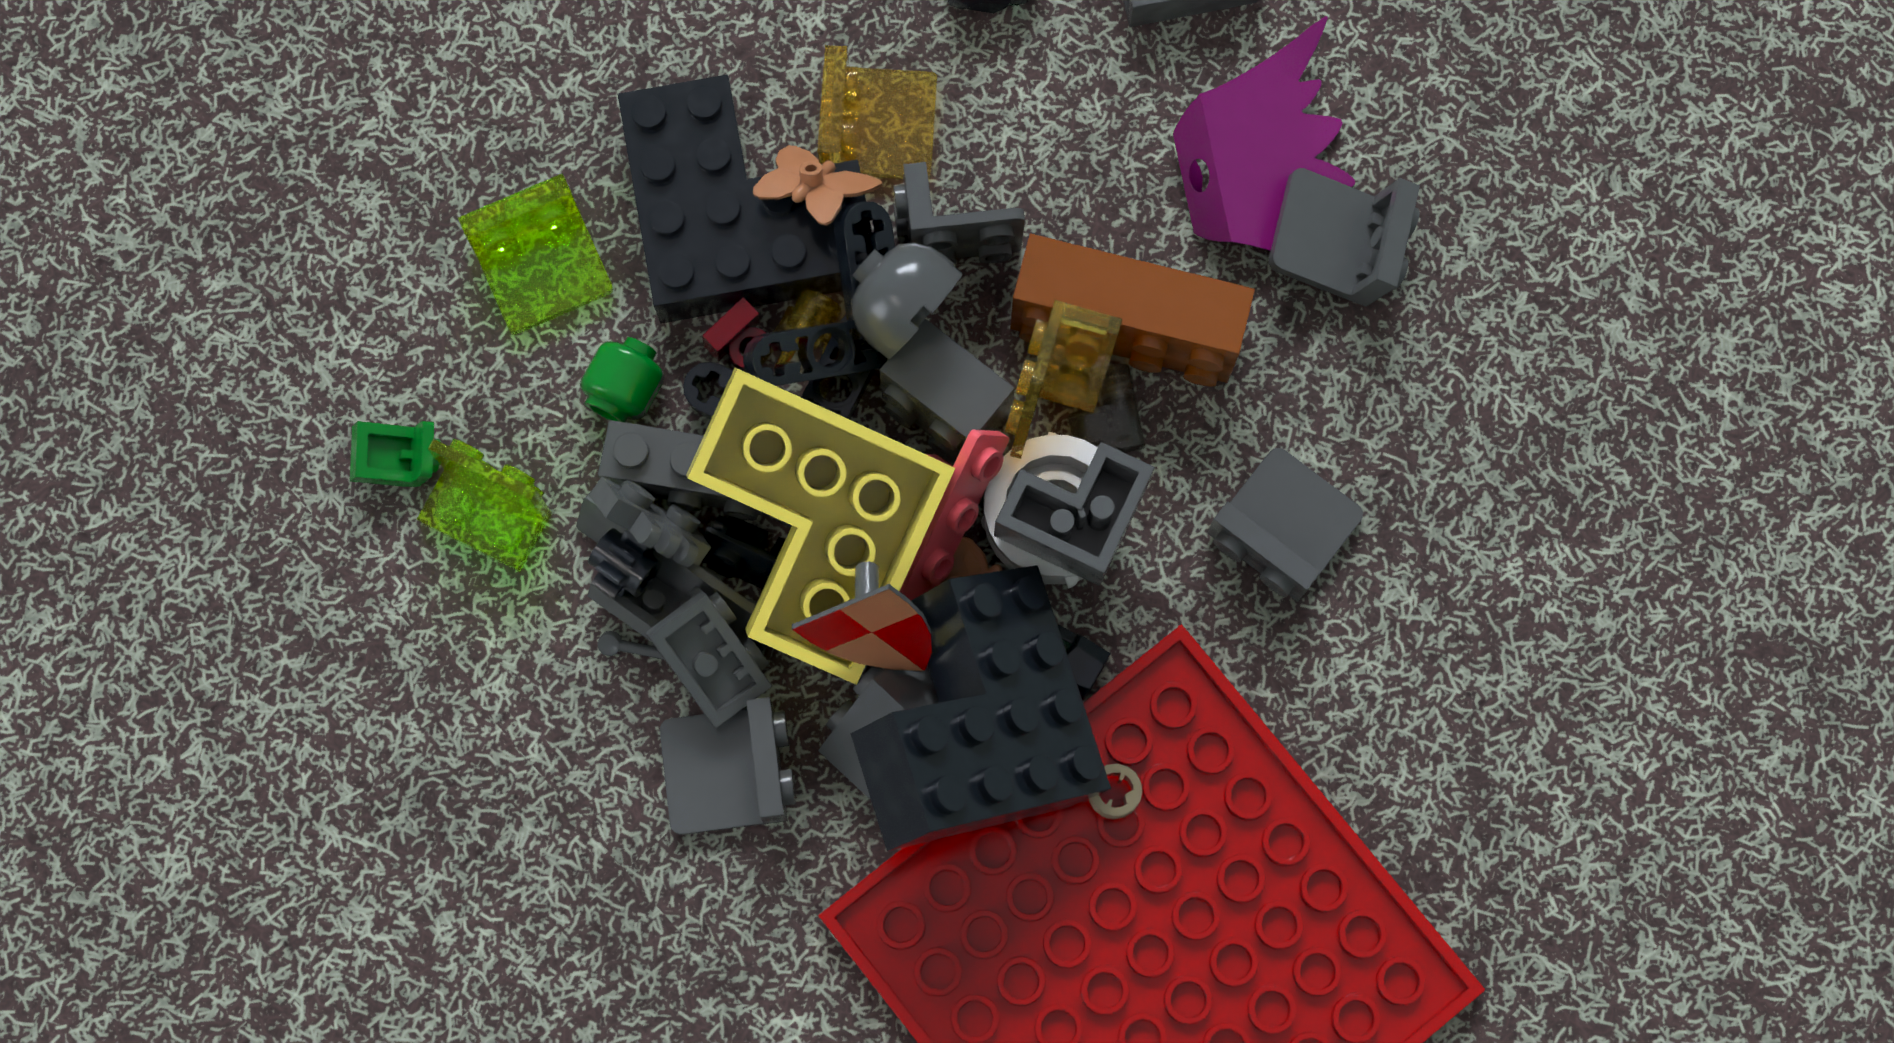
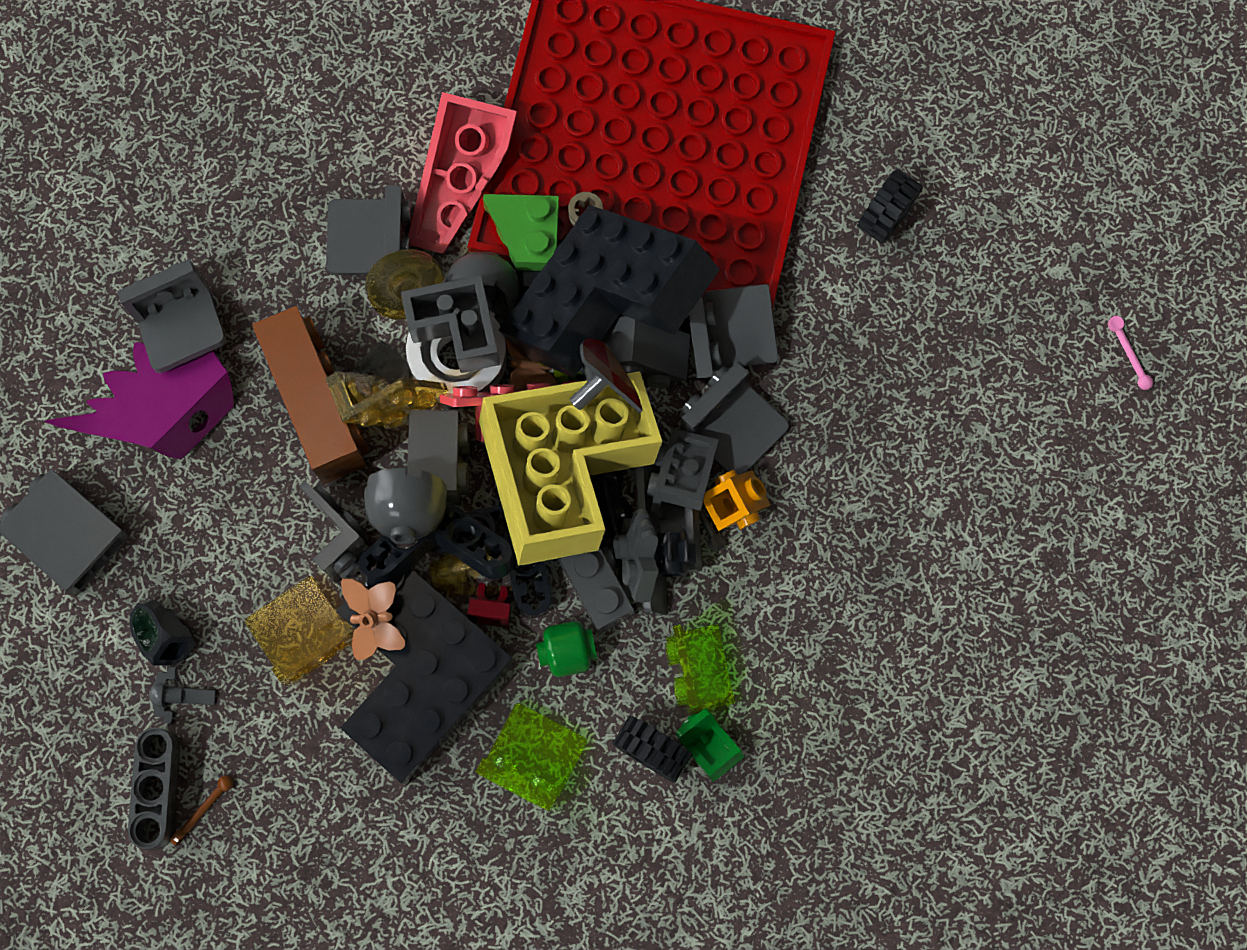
camera: 130 degrees left, 0 degrees up
(436, 382) = (652, 748): none -> black tyre
(631, 692) = (736, 500): none -> light orange brick
(834, 852) = (733, 328): none -> dark grey bracket
(1121, 608) = (498, 278): none -> dark grey cylinder
(1146, 703) = (526, 227): none -> bright green wing
(1185, 512) = (398, 273): none -> clear yellow tile
(1296, 699) = (461, 159): none -> coral wedge

